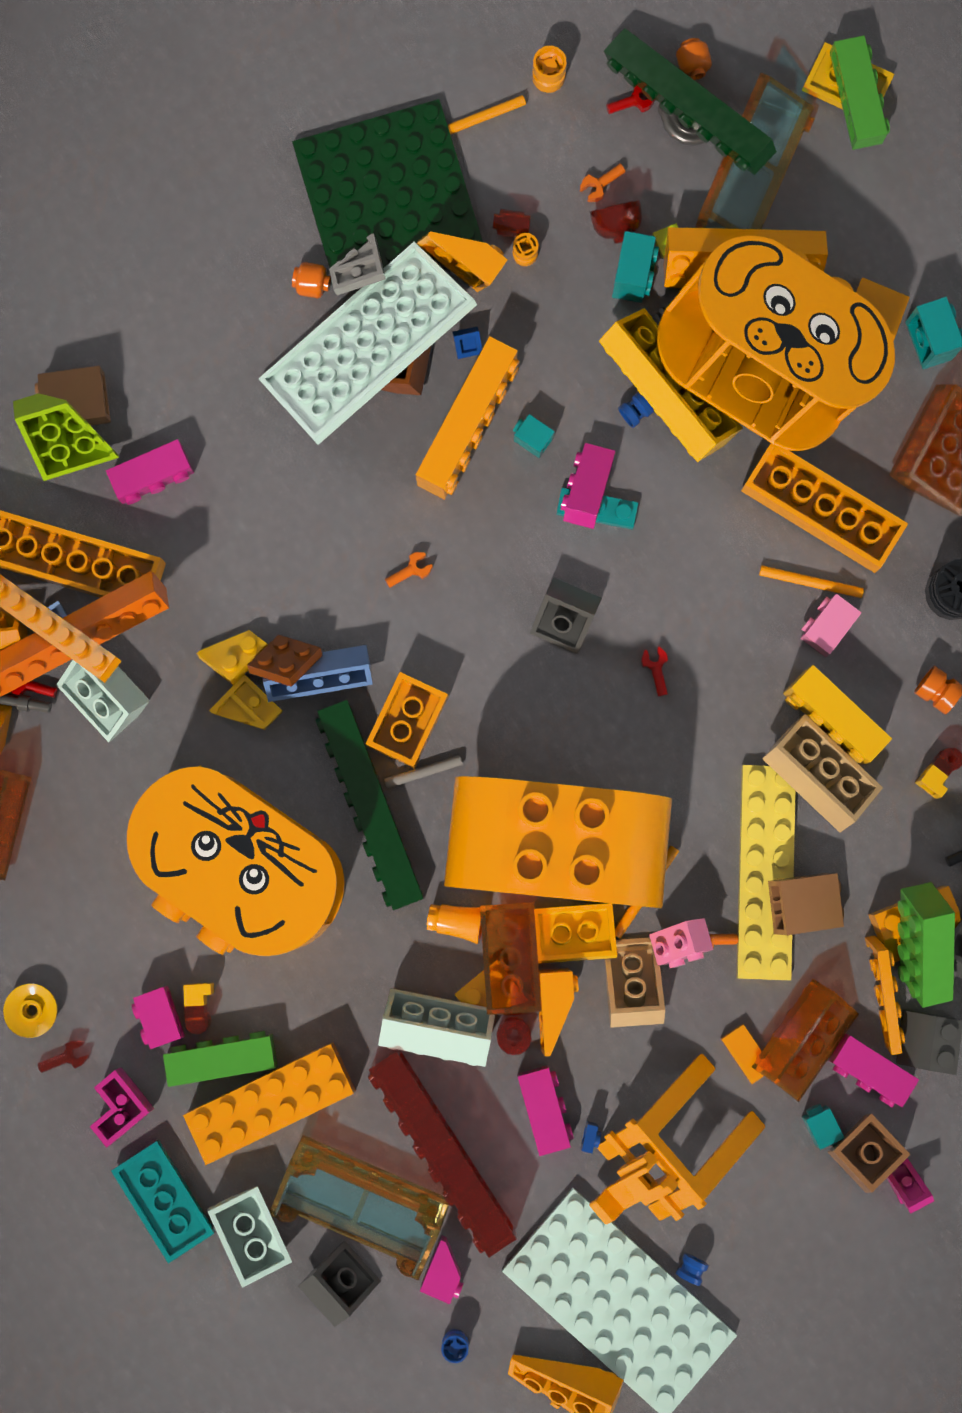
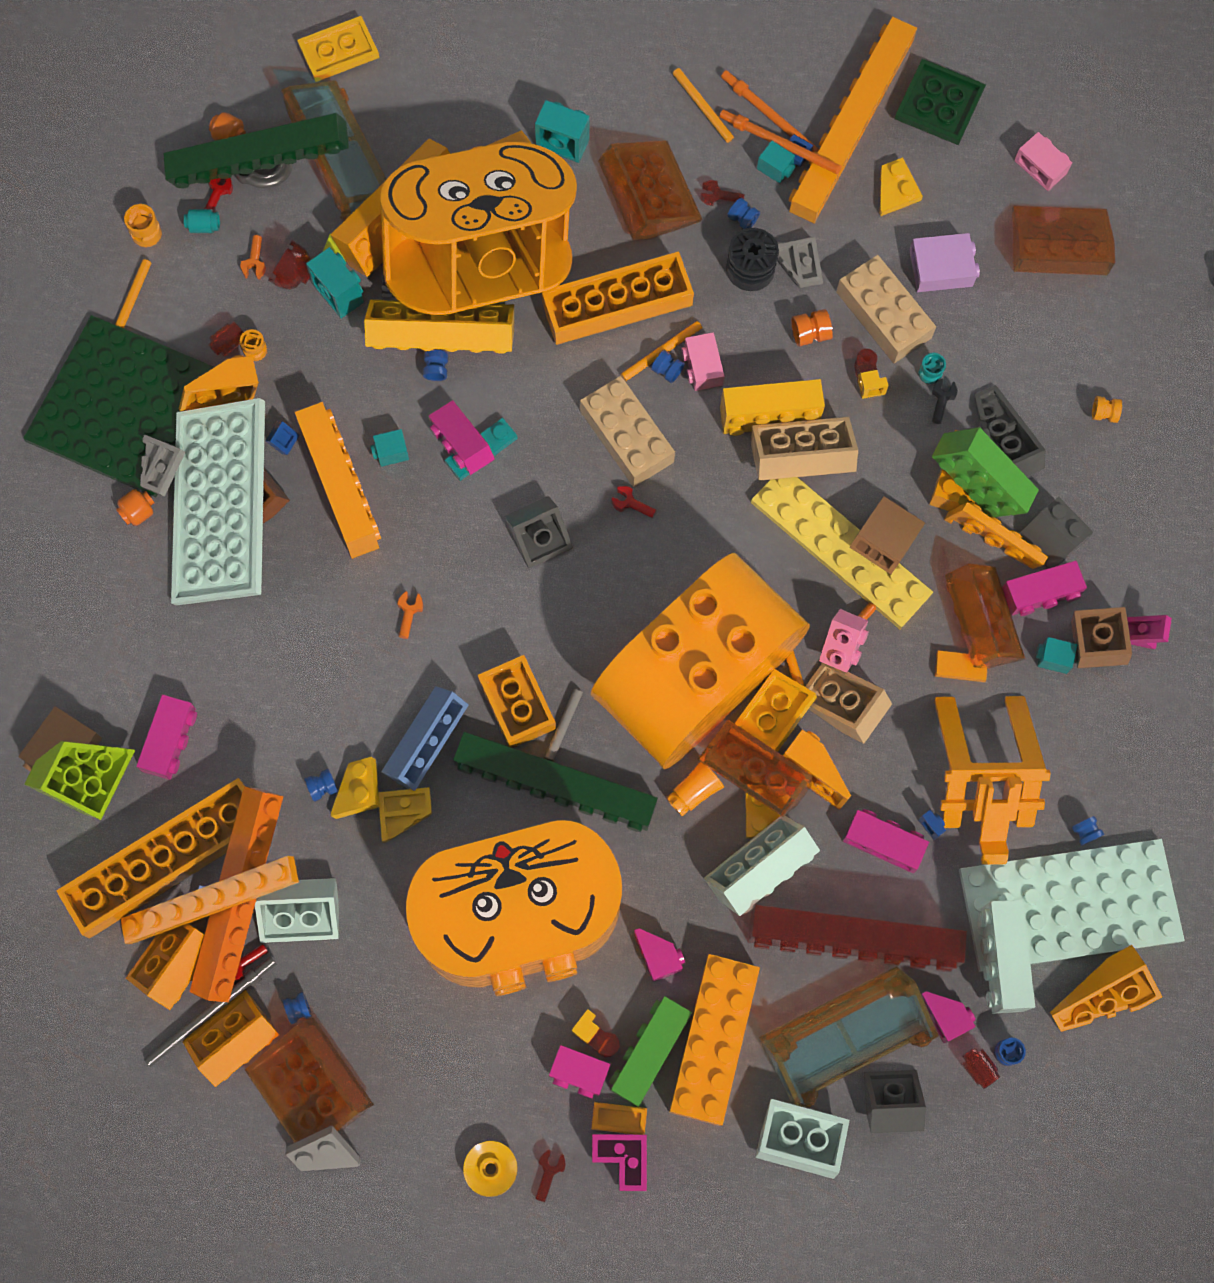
camera: 55 degrees left, 10 degrees down
(28, 758) = (297, 1008): none -> blue wheel
(150, 1077) = (619, 1118): none -> light orange tile
(163, 1201) = (722, 1187): teal plate -> none
(212, 624) = (320, 785): none -> blue wheel
(285, 660) = (395, 751): dark orange plate -> none
(300, 1004) = (659, 955): none -> dark pink slope
(423, 1332) = (980, 1067): none -> clear red brick
(521, 1043) = (818, 806): clear red piece -> none
(523, 1287) = (1006, 957): none -> light aqua brick
(595, 112) = (202, 221): none -> teal brick
(713, 614) = (627, 431): none -> tan brick
(800, 599) = (667, 366): none -> blue wheel
(859, 92) = (353, 45): bright green brick -> none

